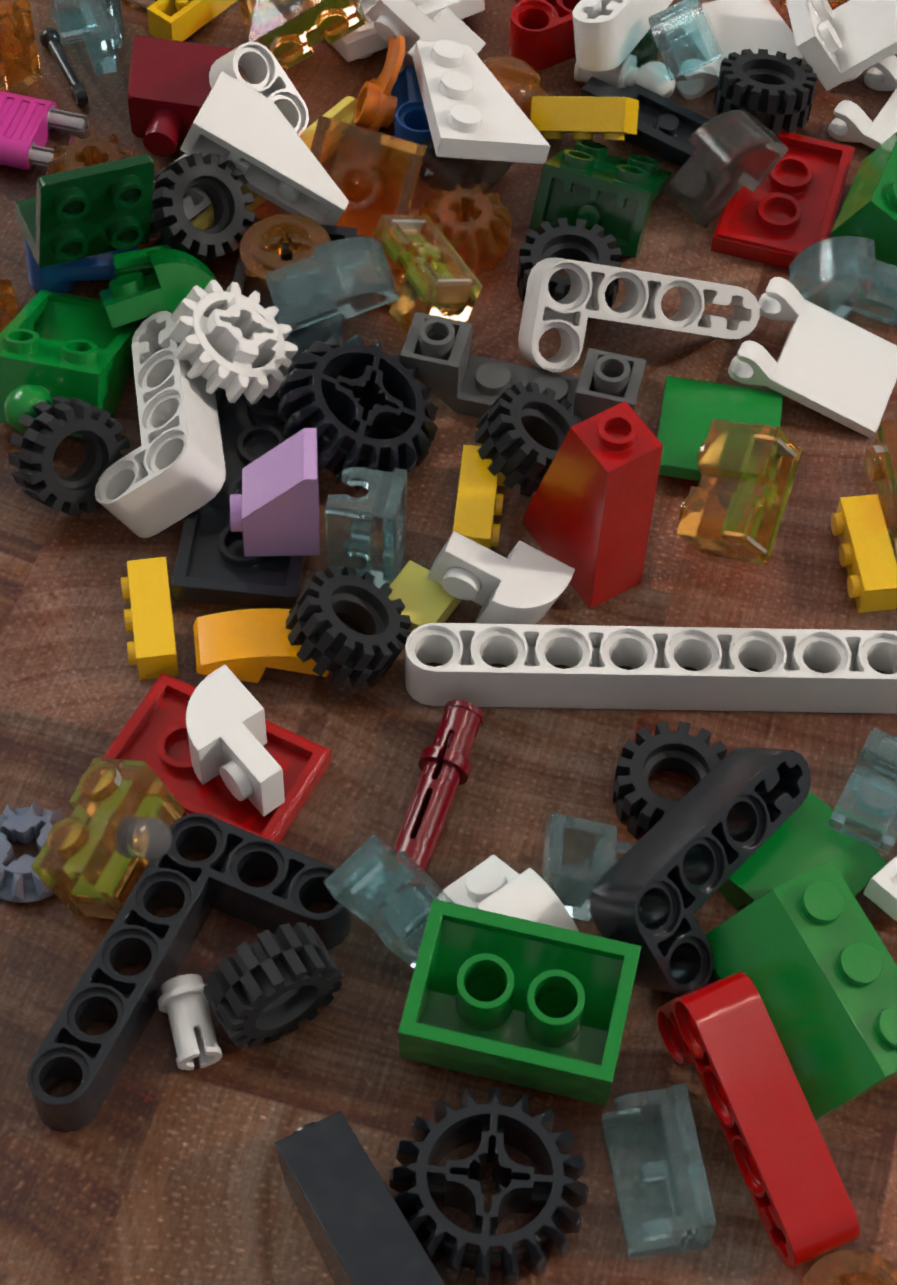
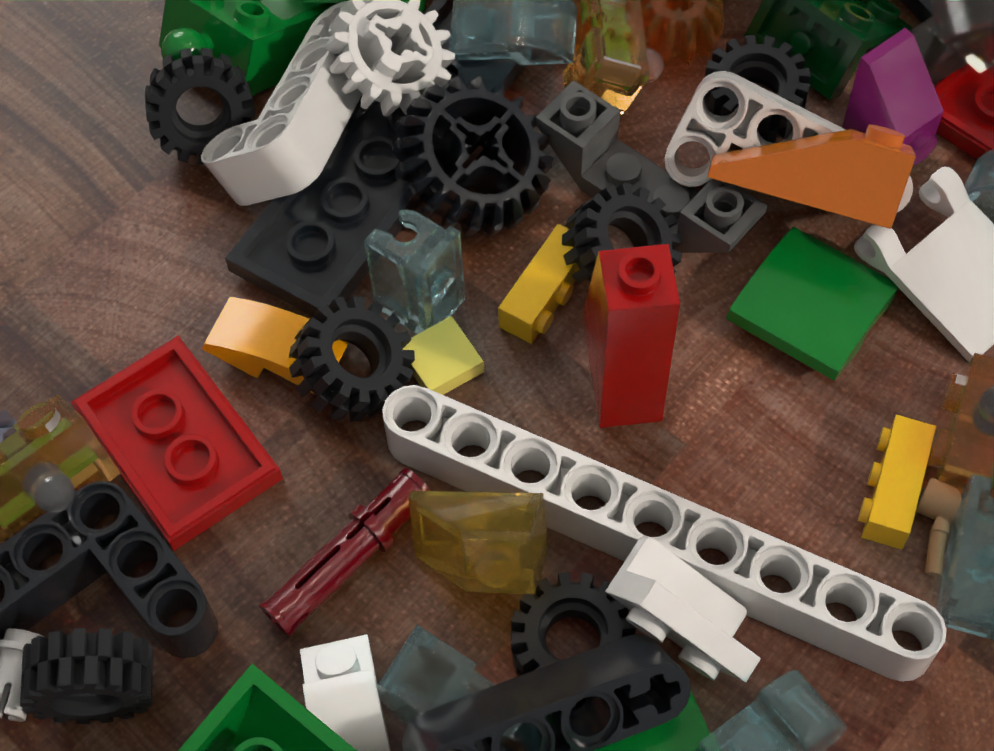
camera: 30 degrees right, 5 degrees up
(150, 618) = (196, 282): yellow piece -> none
(228, 739) = (176, 418): white brick -> none
(280, 500) = (343, 214): lavender slope -> none
(387, 894) = (234, 634): clear light blue brick -> none
(507, 588) = (522, 386): white brick -> none
(552, 730) = (481, 538): none -> clear yellow slope
(689, 310) = (833, 171): none -> orange slope
(703, 235) = (896, 93): none -> magenta slope
(740, 491) = (790, 371): clear orange piece -> none
(759, 716) = (686, 607): none -> white bracket

